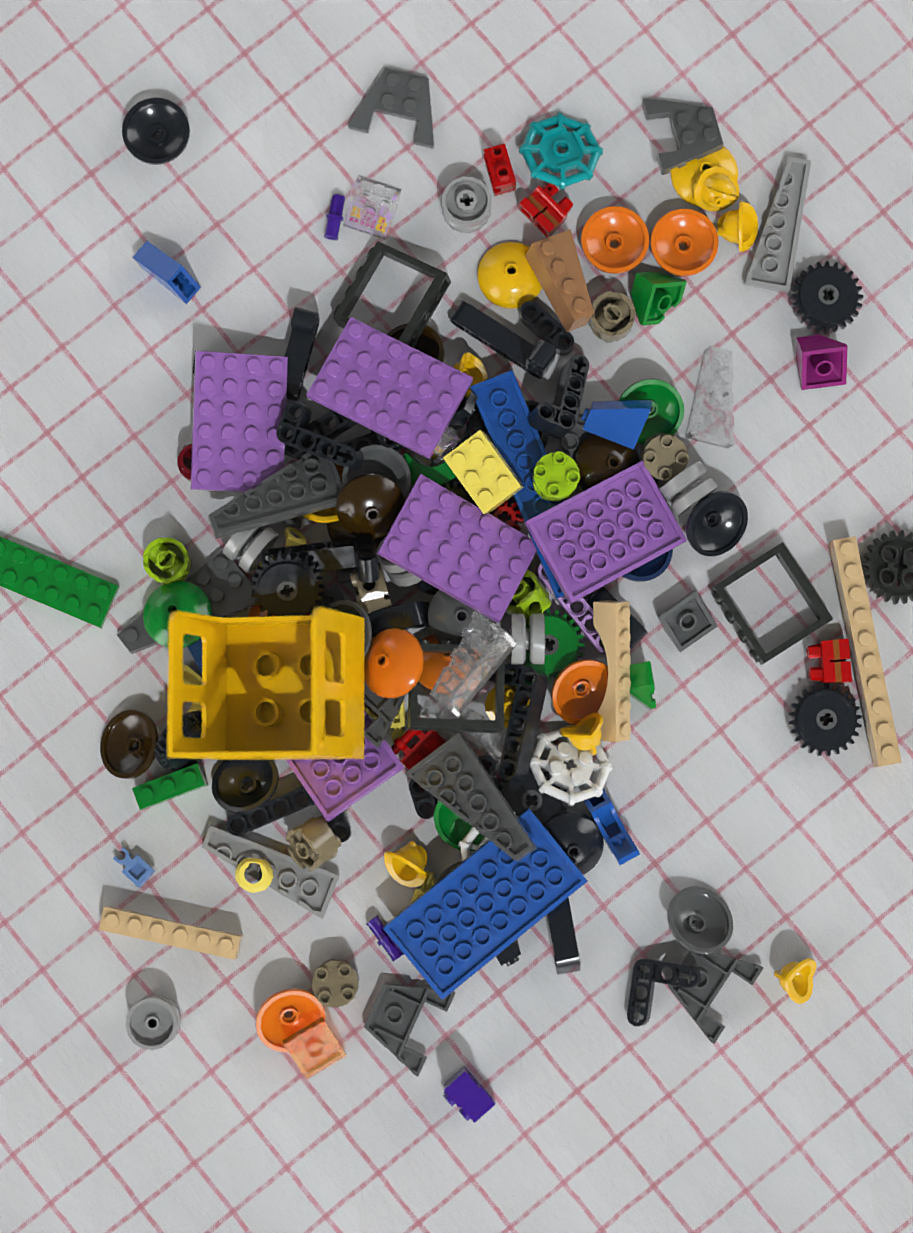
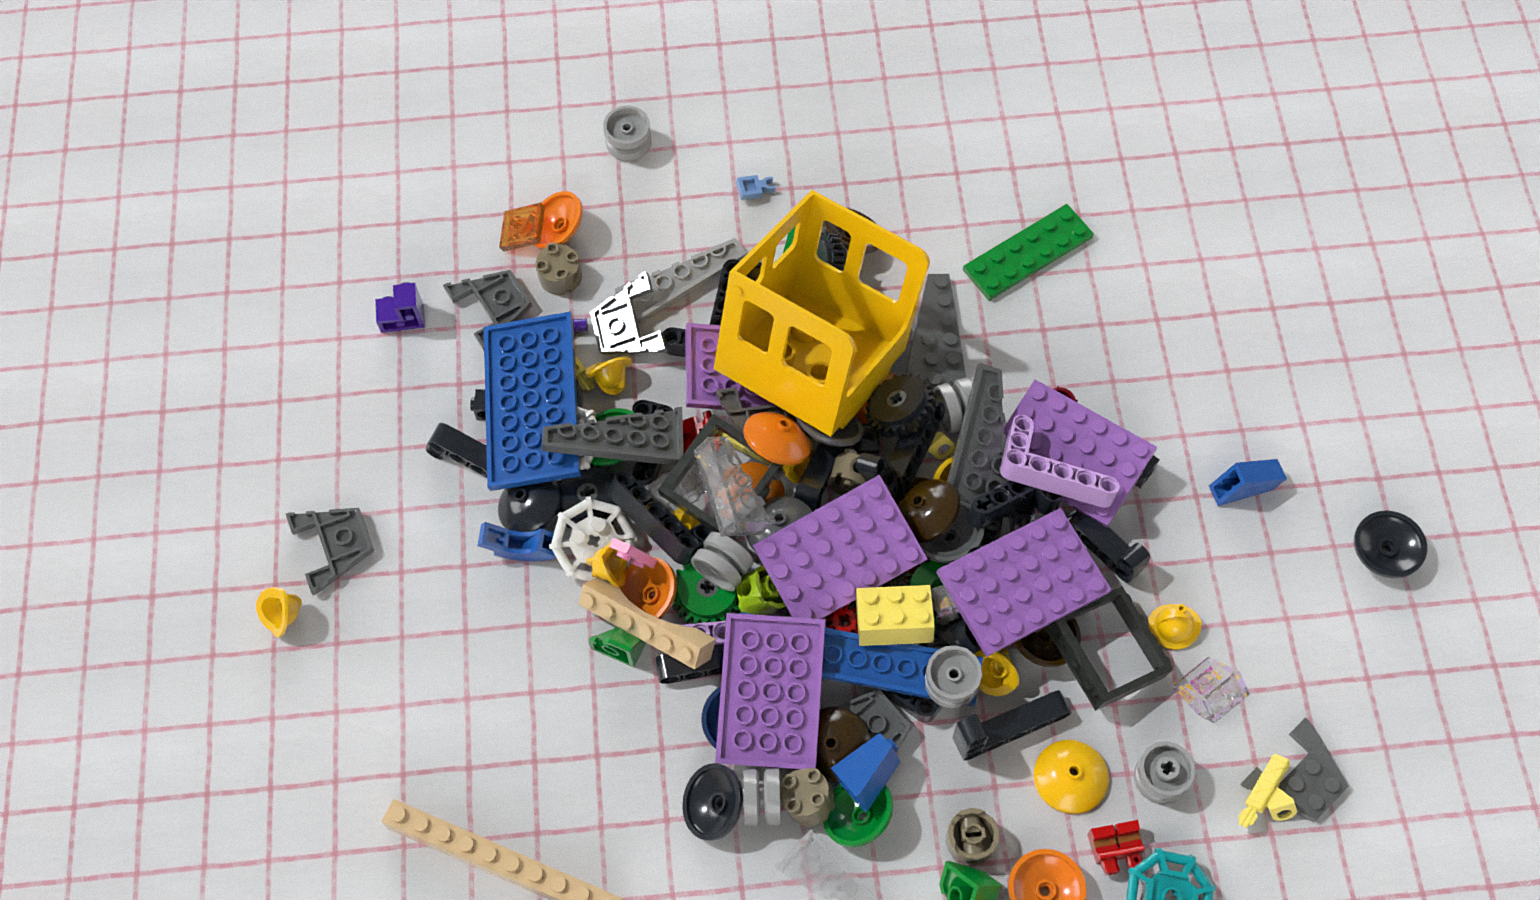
camera: 125 degrees right, 20 degrees down
(167, 560) = (985, 338): lime brick -> none
(170, 933) = (656, 203): tan arch -> none
(185, 598) = (938, 330): green dish -> none
(263, 884) = (681, 268): light yellow piece -> none
(278, 424) = (1049, 474): none -> lavender beam
(312, 843) = (676, 309): dark tan brick -> none
(333, 264) = (1174, 625): none -> yellow helmet
(334, 217) = (1219, 651): dark purple axle -> none
(357, 889) = (617, 323): none -> wing
(433, 121) = (1268, 794): none -> light yellow piece
(499, 169) = (1183, 824): red hips -> none
(507, 408) = (940, 674): none -> light grey wheel
(541, 318) = (1006, 763): black beam -> none
(555, 476) = (849, 673): lime brick -> none
(562, 279) = (1046, 812): medium nougat wedge -> none
(562, 415) = (922, 741): black beam -> none
(567, 717) = (628, 551): none -> bright pink plate
(653, 976) = (373, 499): black beam -> none
(687, 621) = (644, 723): dark grey slope -> none
(708, 914) = (375, 575): dark grey dish -> none
(802, 584) = (606, 848): pearl dark grey window -> none
(830, 671) = (514, 828): red hips -> none
(841, 719) = (461, 800): black gear -> none

